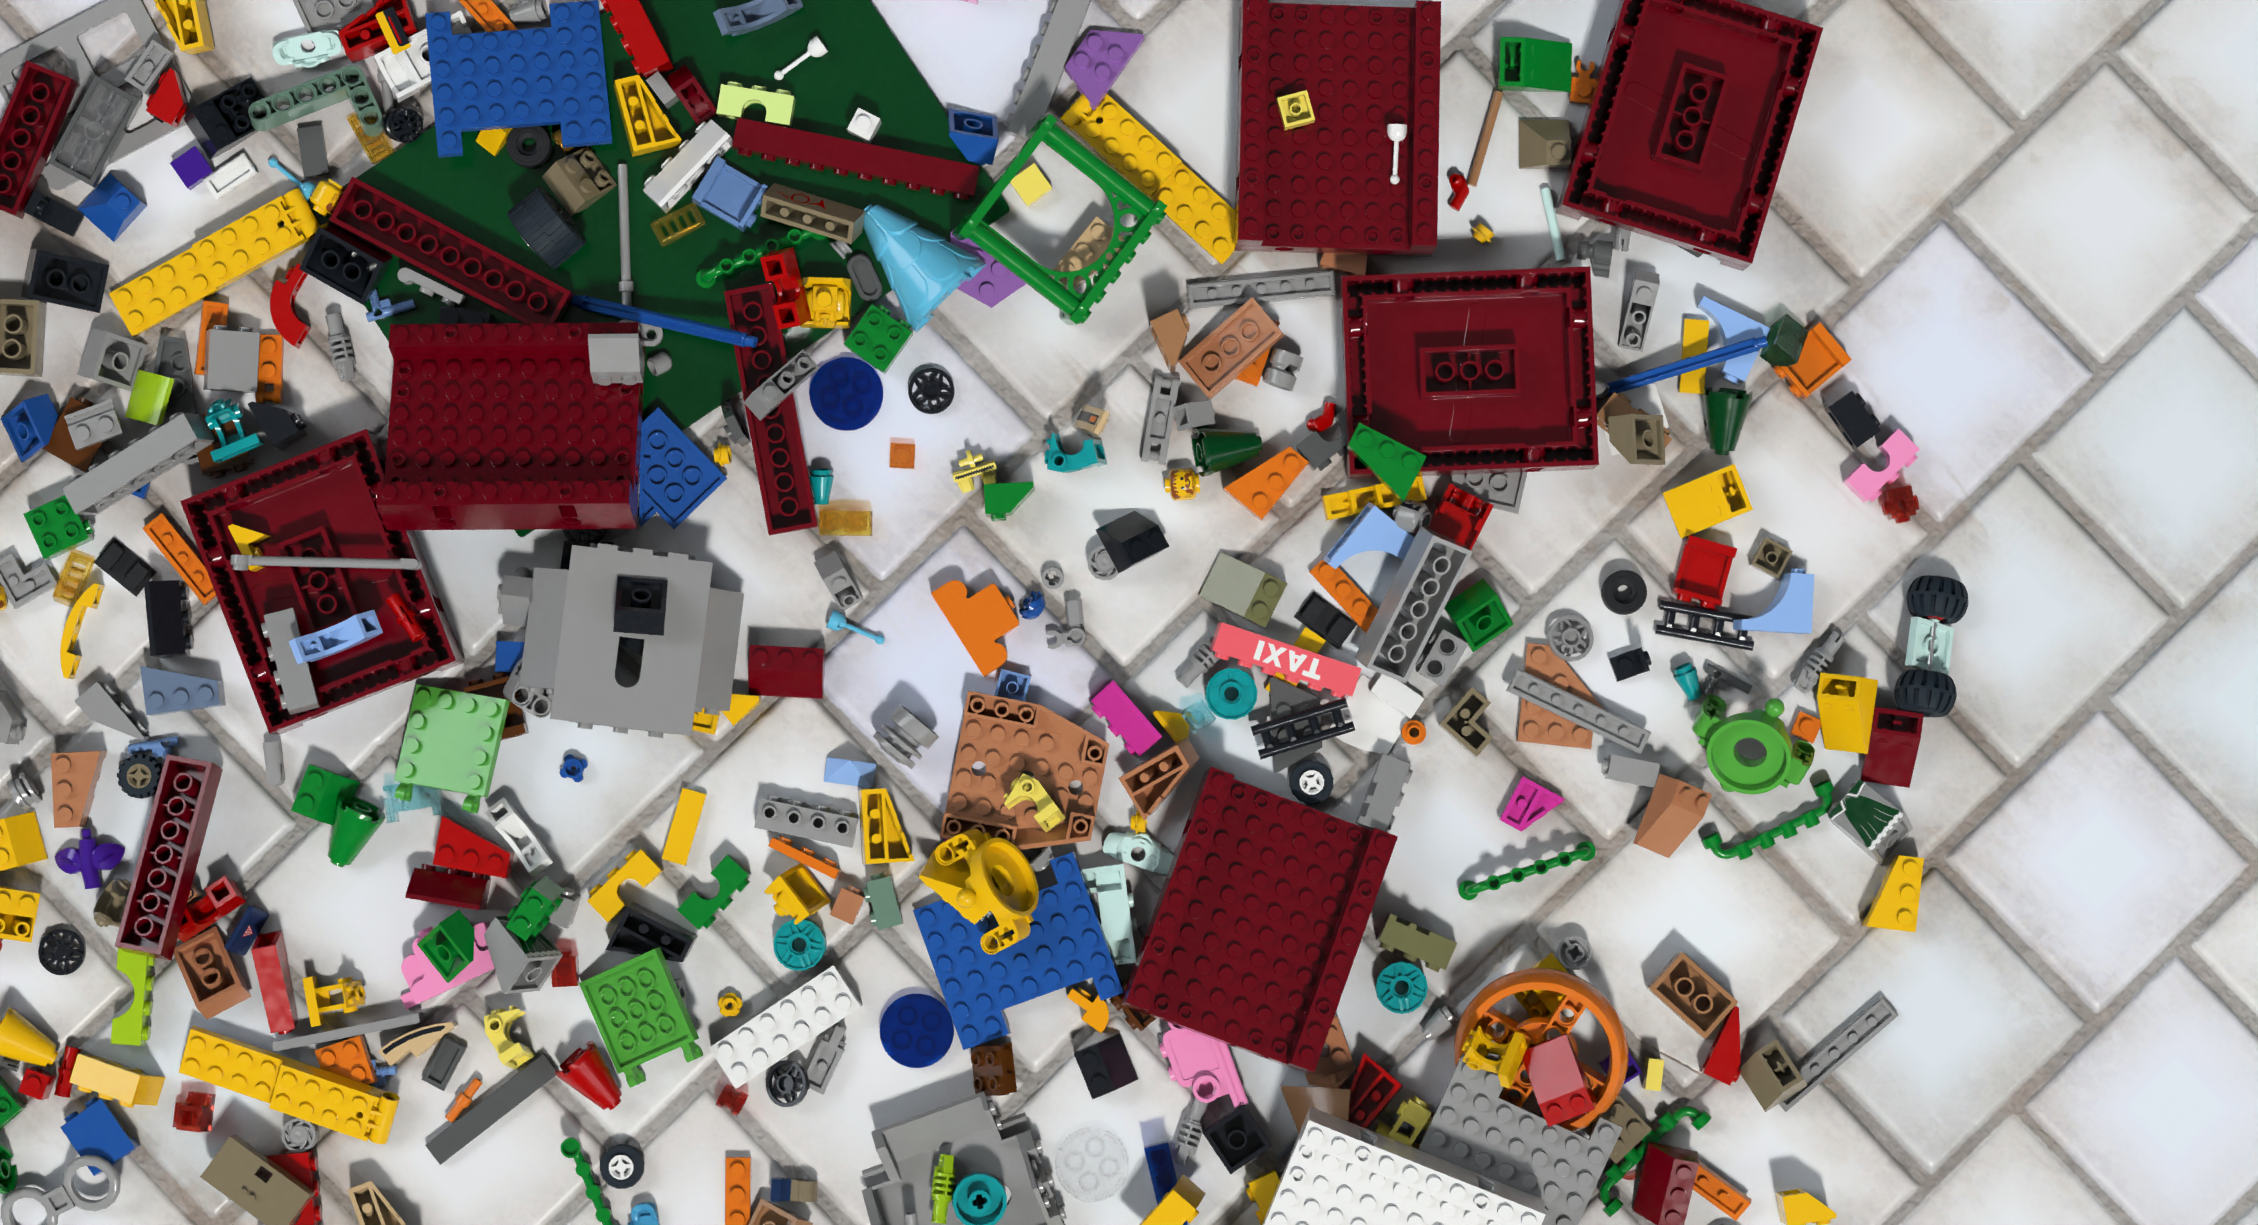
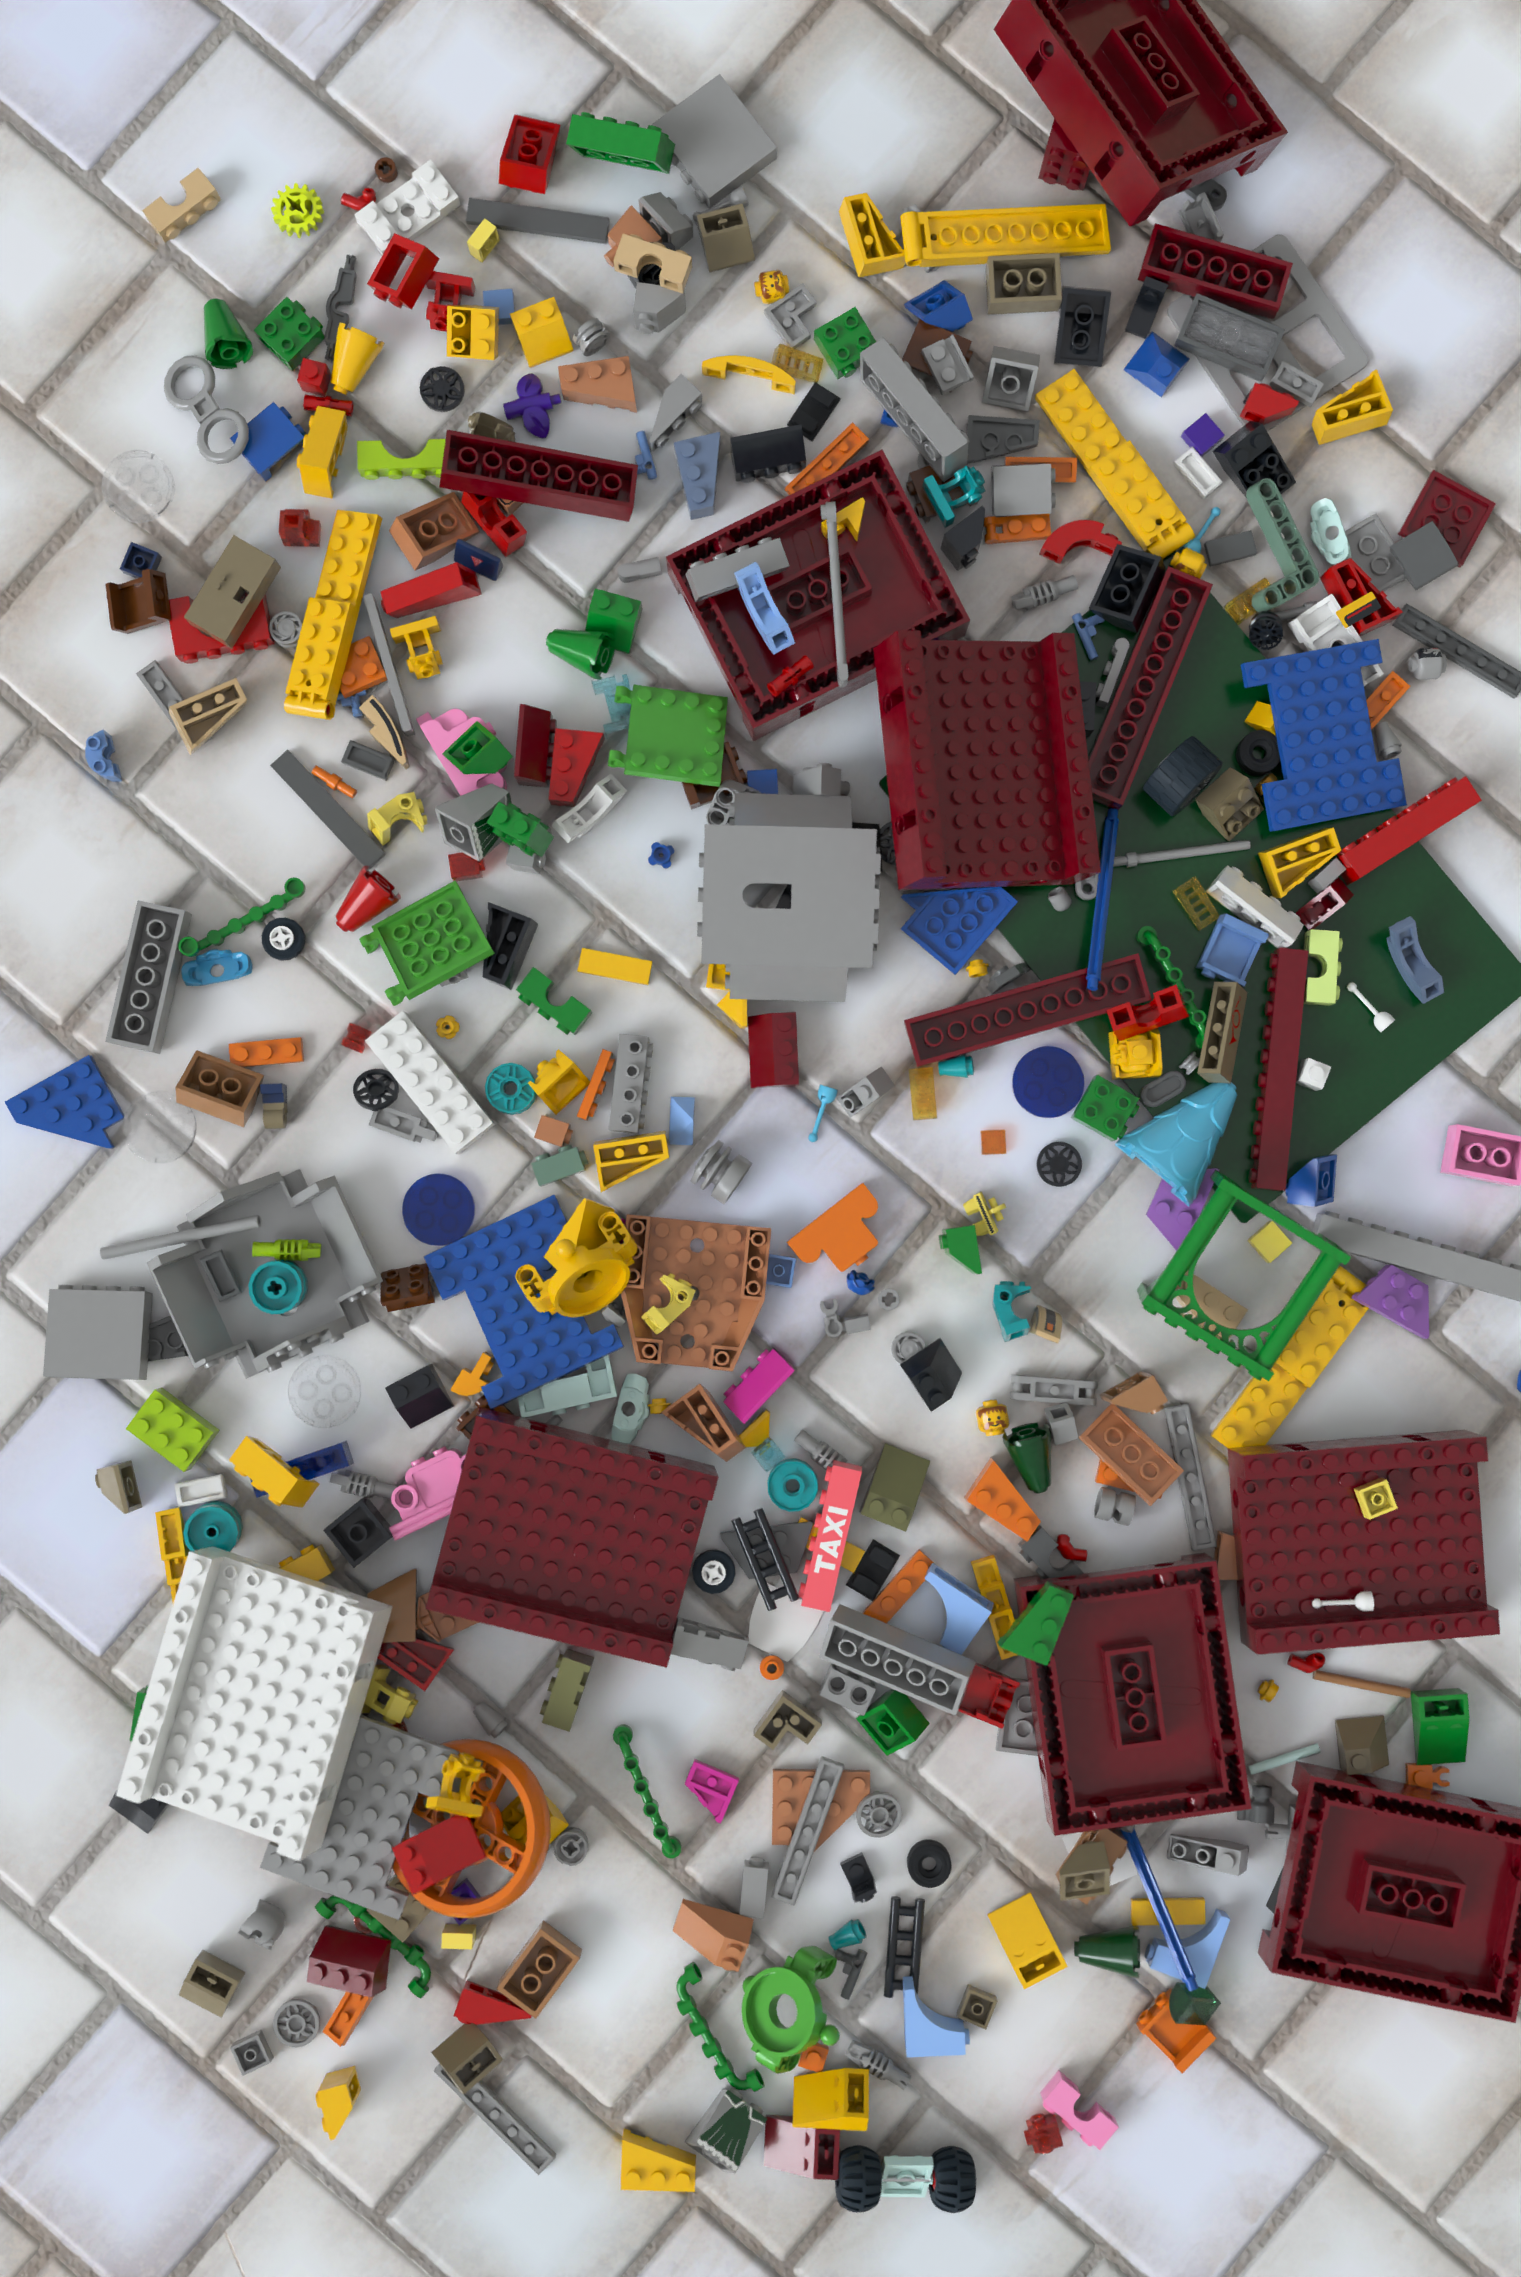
camera: 80 degrees right, 0 degrees up
(131, 775) = (615, 436): black wheel -> none
(149, 397) = (978, 415): lime slope -> none
(607, 898) = (537, 900): yellow arch -> none
(616, 358) = (1063, 853): light grey slope -> none
(640, 605) = (823, 901): black slope -> none
(781, 385) = (1052, 1017): light grey slope -> none
(1397, 695) = (806, 1647): white tile -> none
(1411, 516) = (983, 1648): light grey head -> none
(1412, 998) = (510, 1689): teal wheel -> none
(1703, 571) = (957, 1940): red panel -> none
(1853, 419) = (1122, 2079): black brick -> none

